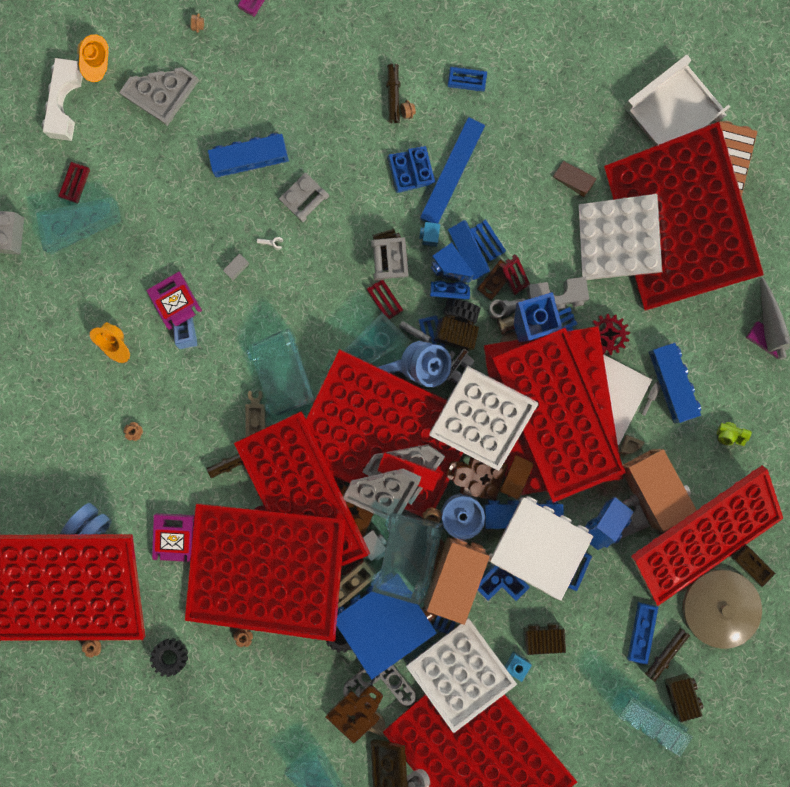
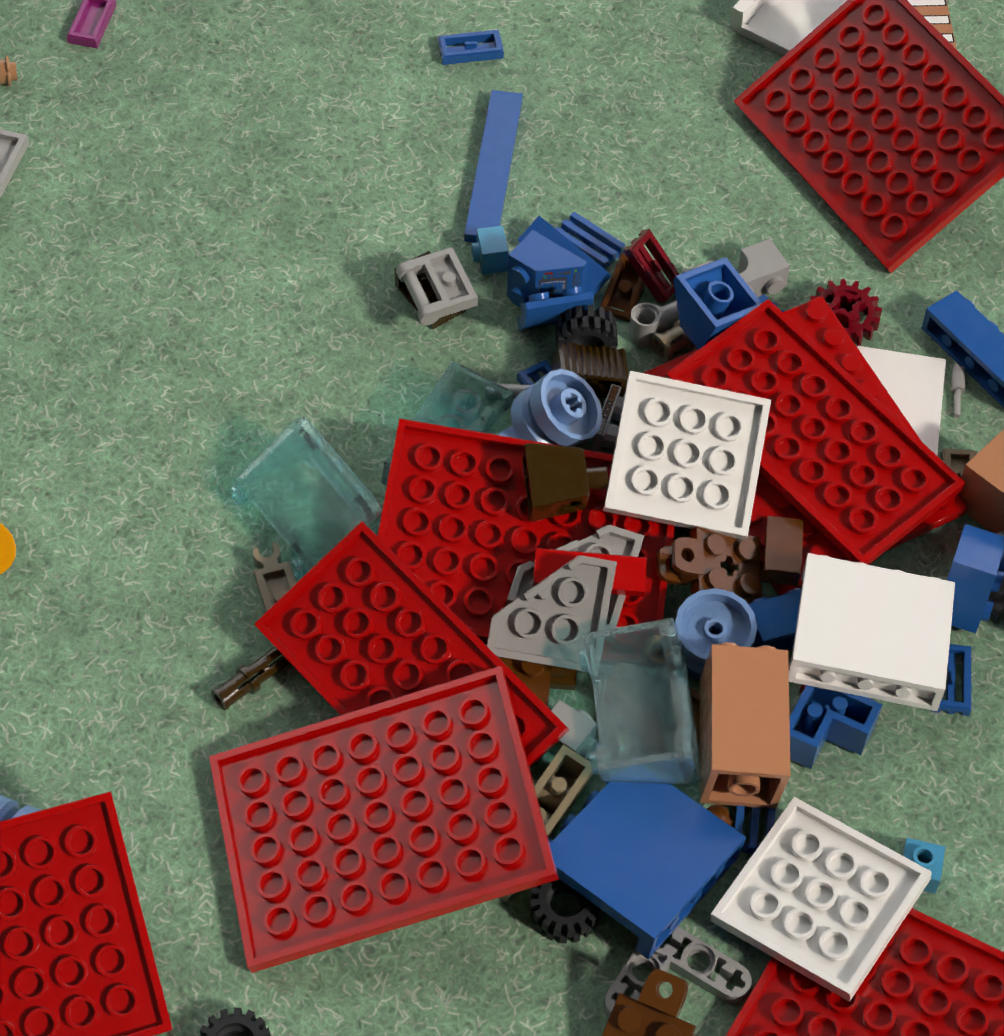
camera: 20 degrees left, 30 degrees down
(133, 436) = (56, 681): medium nougat plate -> none
(172, 542) = (182, 833): container -> none
(176, 302) = (74, 445): container -> none
(190, 337) = (111, 507): medium blue slope -> none
(236, 266) = (171, 376): light grey piece -> none
(248, 155) = (145, 217): blue brick -> none
(248, 637) = (374, 980): medium nougat plate -> none
(271, 242) = (231, 330): white hand -> none
(299, 193) = (251, 248): light grey plate -> none
(376, 286) = (446, 353): dark red tile -> none
(393, 85) = (356, 80): dark brown pin -> none
(407, 110) = (389, 103): medium nougat plate -> none
(410, 413) = (558, 480): none -> dark brown torso
(411, 169) = (424, 177): blue slope -> none
(544, 639) = (948, 802): dark brown brick -> none
(574, 178) = (695, 129): reddish brown slope -> none
(620, 237) = (802, 176): white plate -> none

